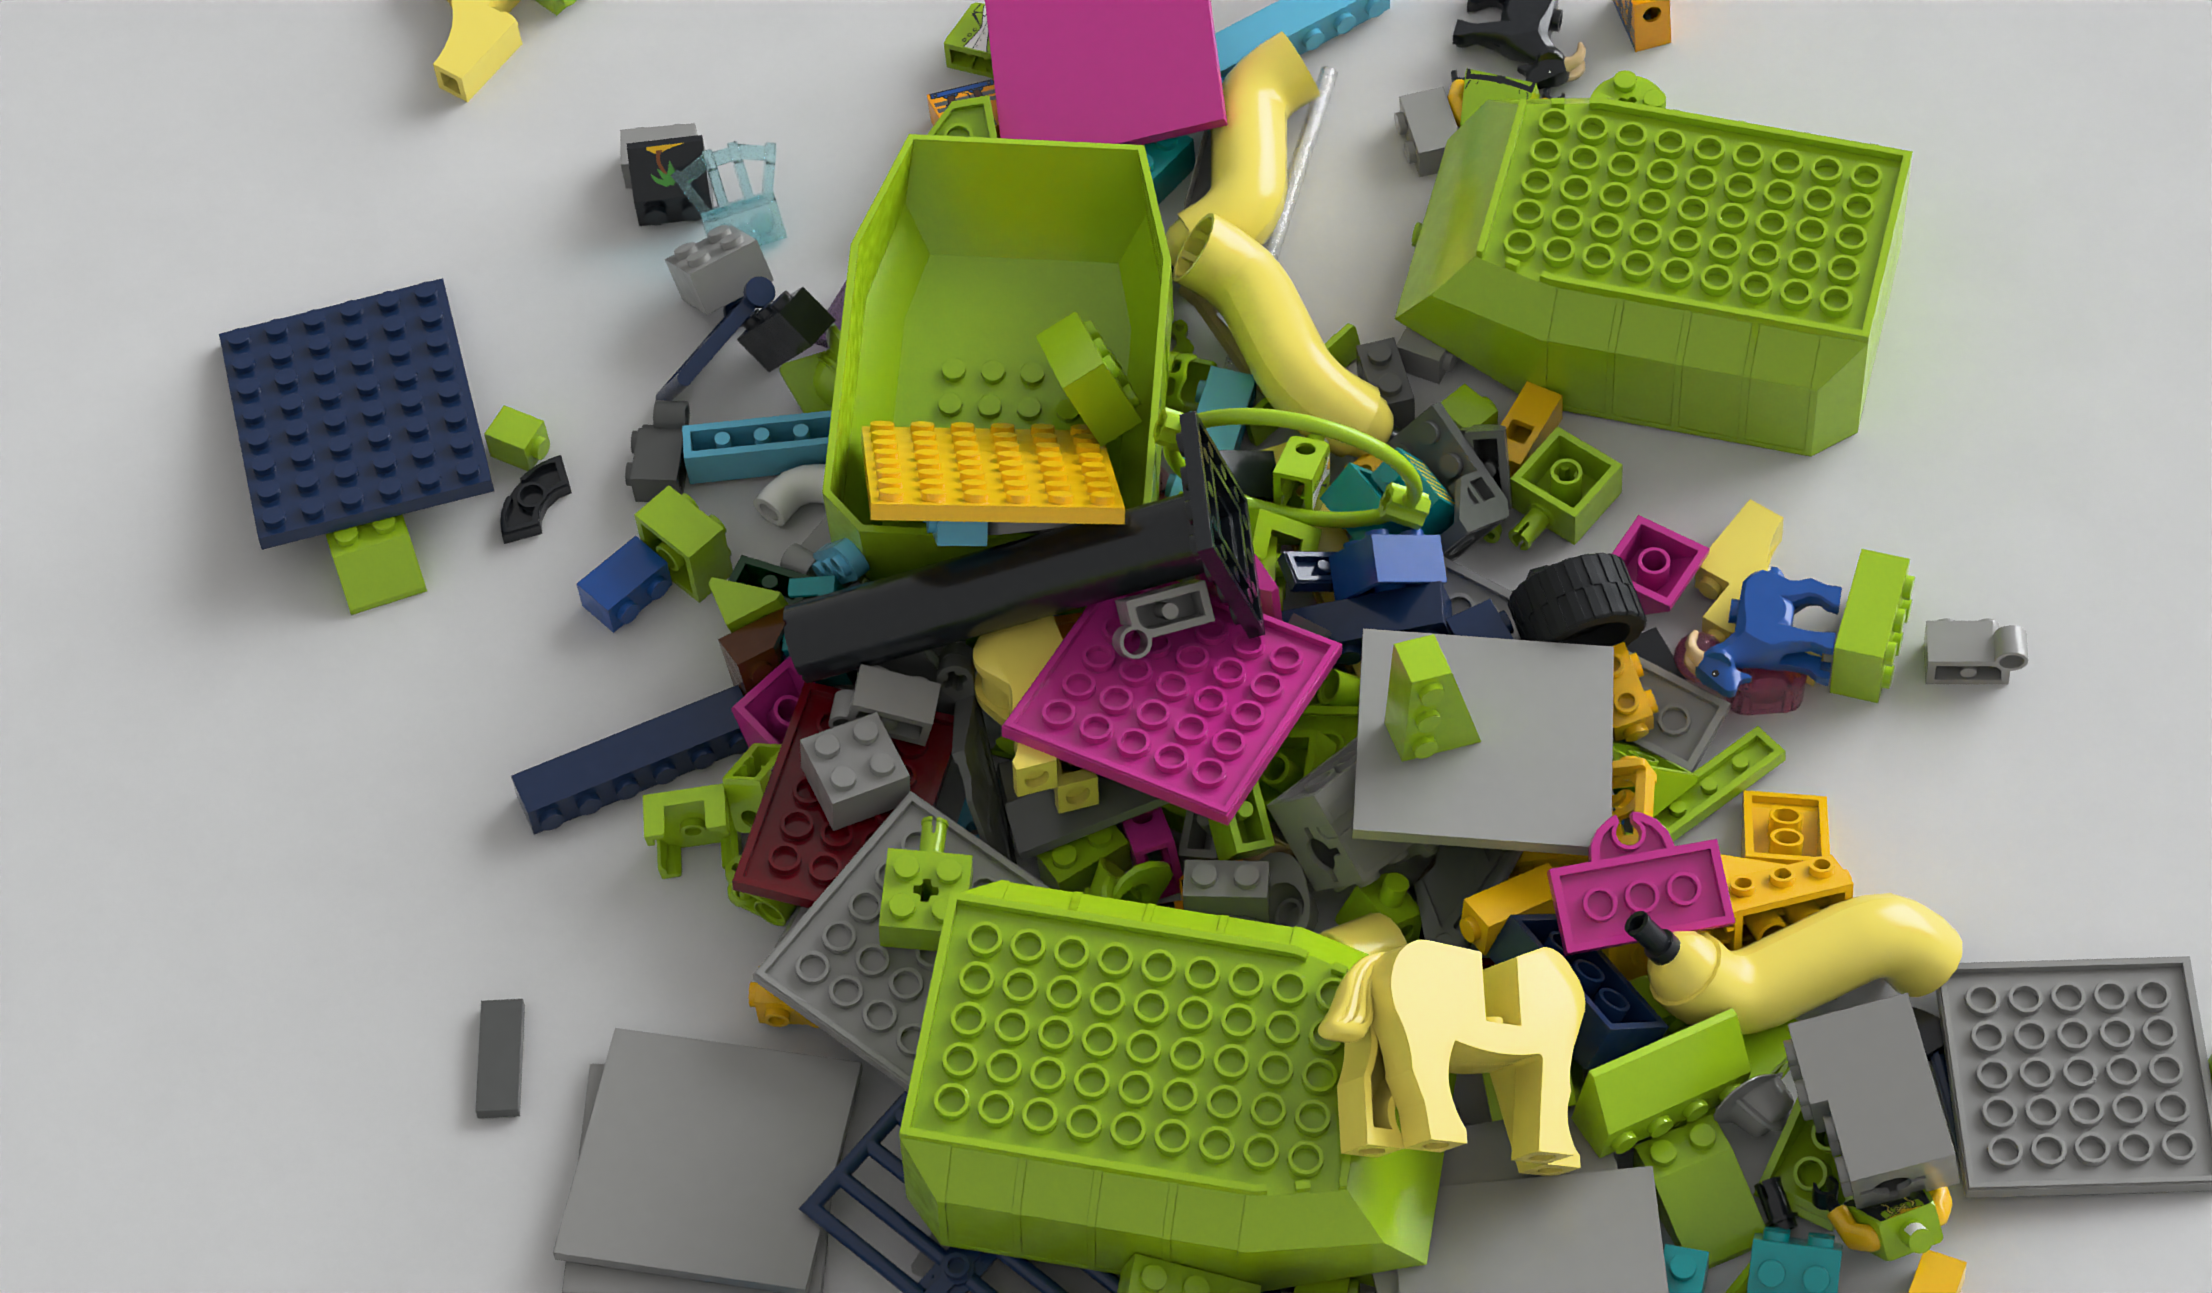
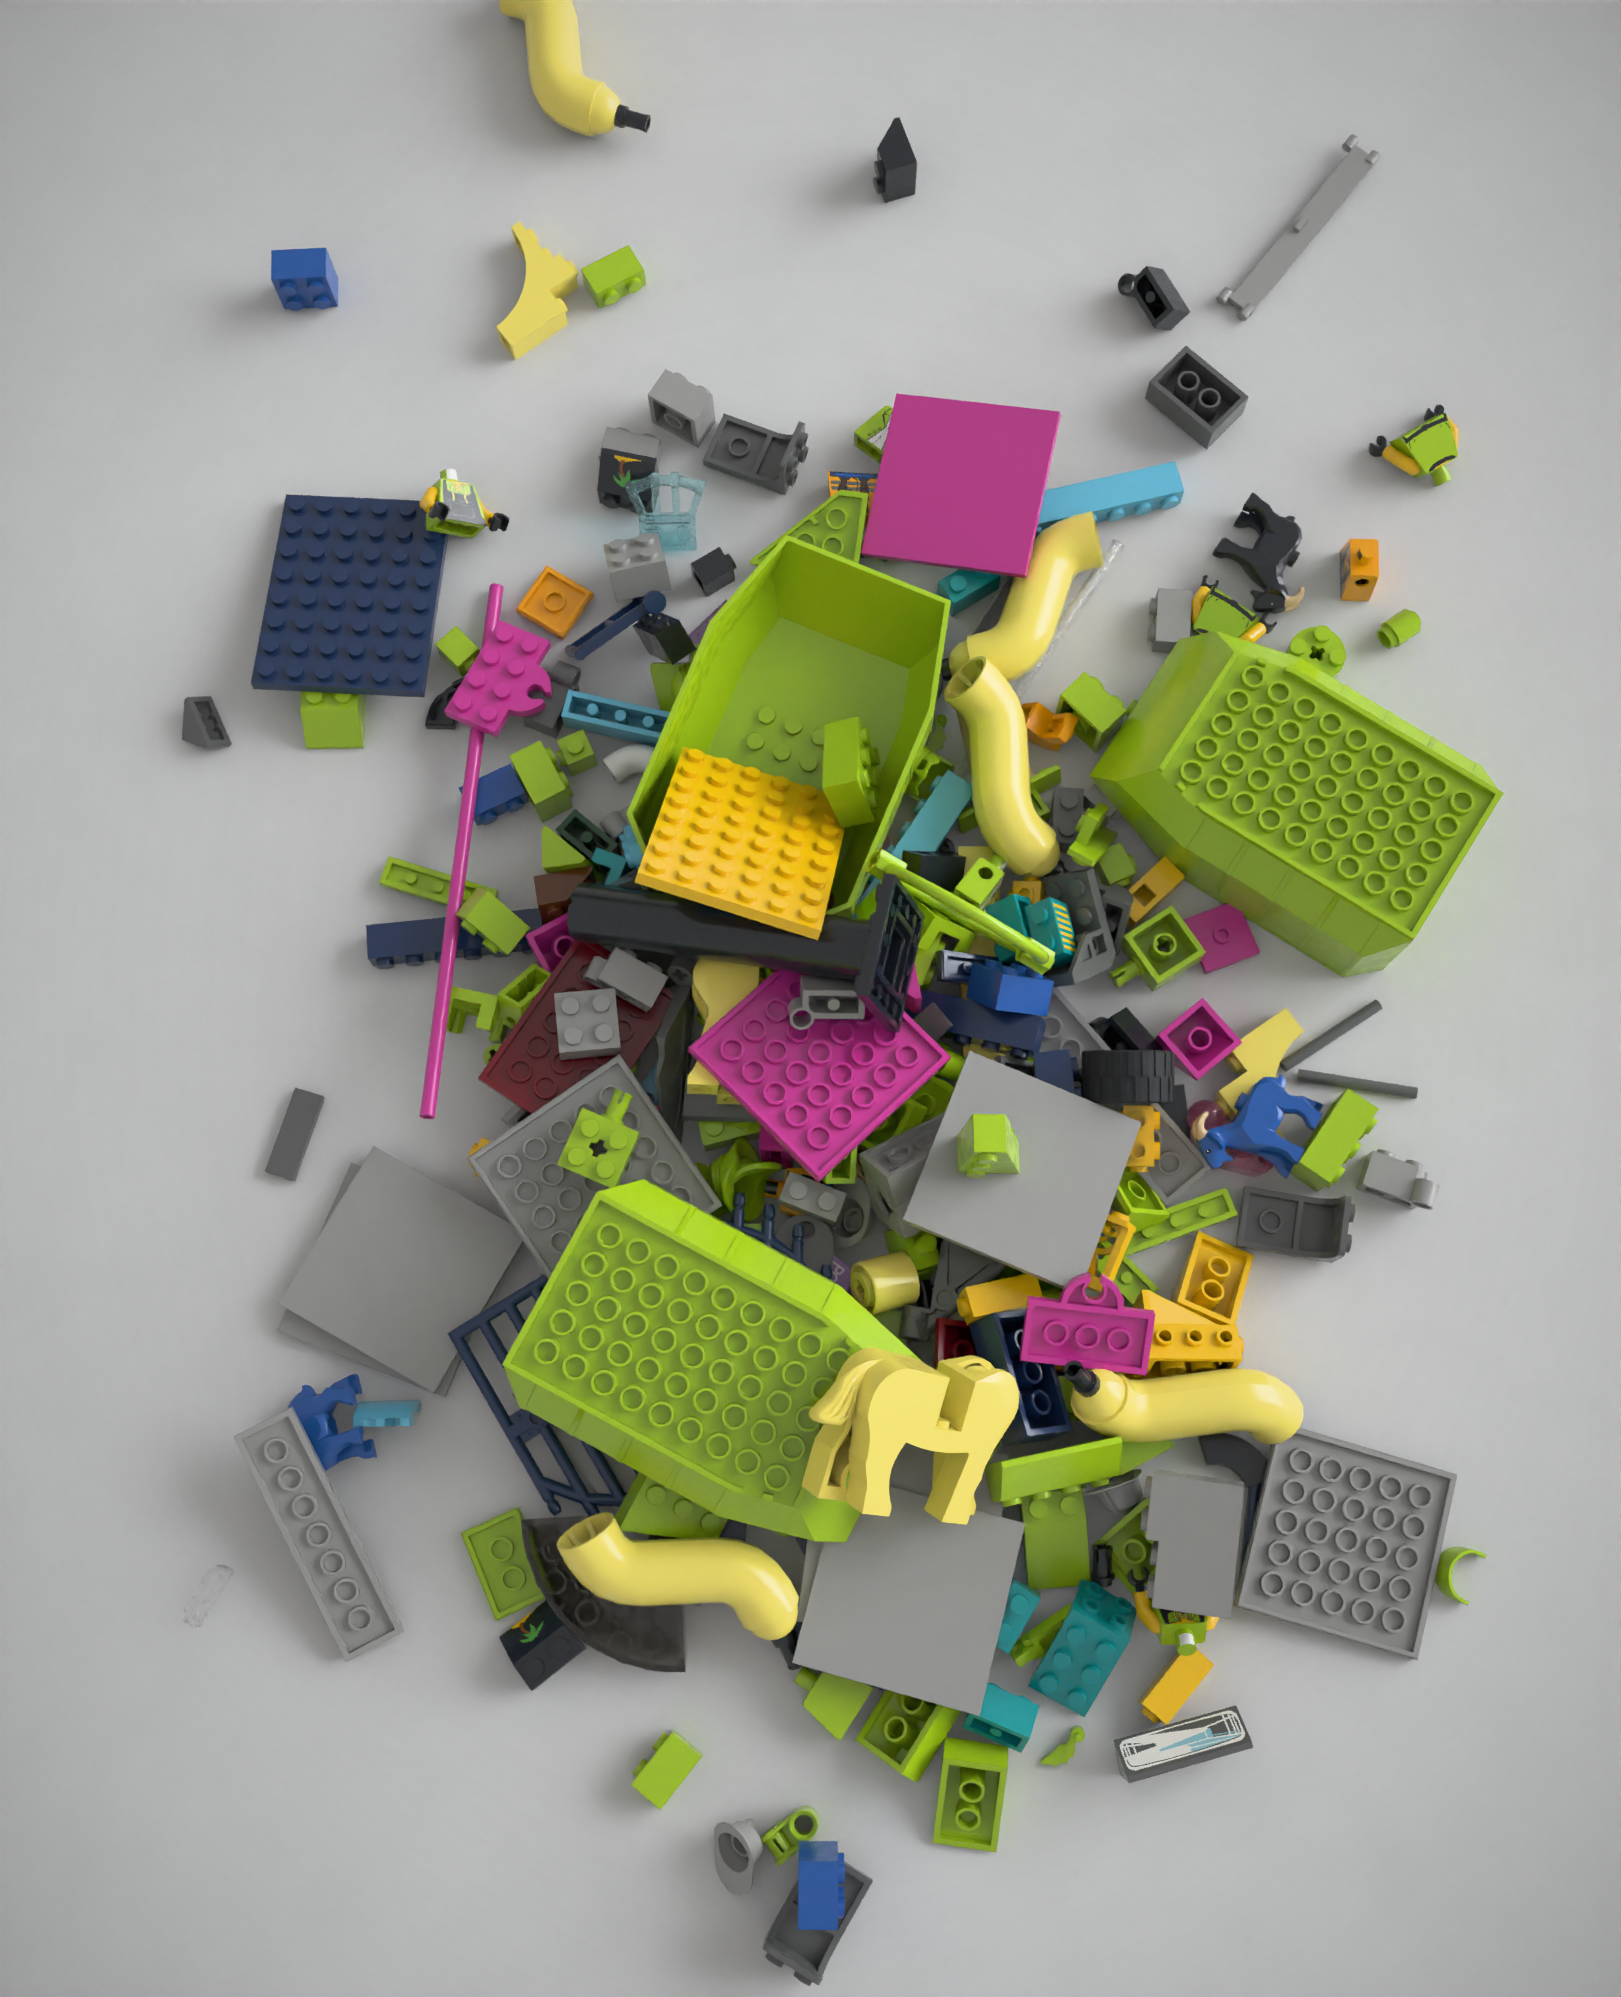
camera: 15 degrees right, 20 degrees up
(160, 83) = (304, 278): none -> blue brick
(200, 625) = (203, 724): none -> dark grey slope
(457, 279) = (456, 509): none -> torso
(585, 711) = (423, 882): none -> lime plate
(592, 444) = (502, 681): none -> dark pink plate
(612, 651) = (456, 891): none -> dark pink piece
(623, 348) = (554, 602): none -> light orange plate
(683, 704) = (492, 921): none -> lime brick
(710, 82) = (682, 407): none -> light grey brick
(720, 497) = (576, 753): none -> lime brick
(819, 251) = (713, 571): none -> black brick
(827, 106) = (757, 453): none -> dark grey bracket
(1325, 291) = (1046, 728): none -> light orange brick
(1367, 254) = (1097, 711): none -> lime brick
(1418, 364) = (1092, 837): none -> lime bracket
(1647, 457) = (1223, 936): none -> dark pink plate
(1720, 55) = (1399, 628): none -> lime brick
(1824, 519) = (1330, 1035): none -> dark grey bar
(1847, 569) = (1357, 1083): none -> dark grey bar
(1864, 740) = (1295, 1224): none -> dark grey bracket

